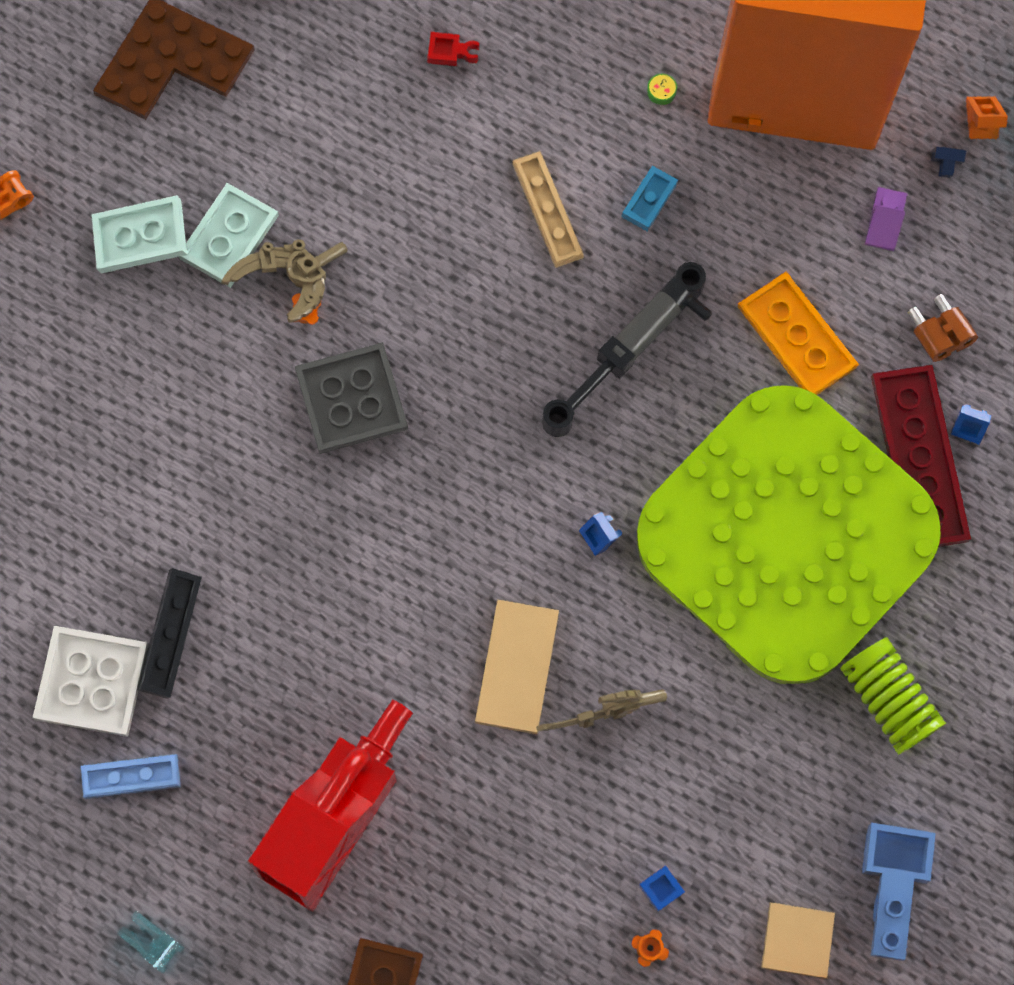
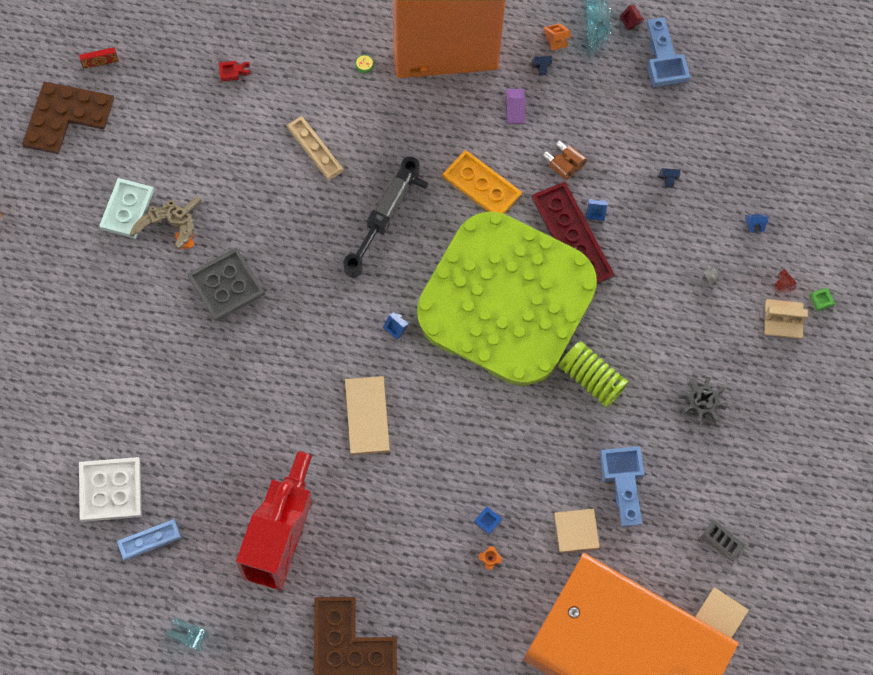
camera: 15 degrees left, 5 degrees down
(139, 234) = (72, 220): light aqua plate -> none
(169, 633) = (151, 449): black plate -> none
(614, 705) = (435, 418): dark tan bar -> none
(649, 198) = (374, 127): dark azure plate -> none

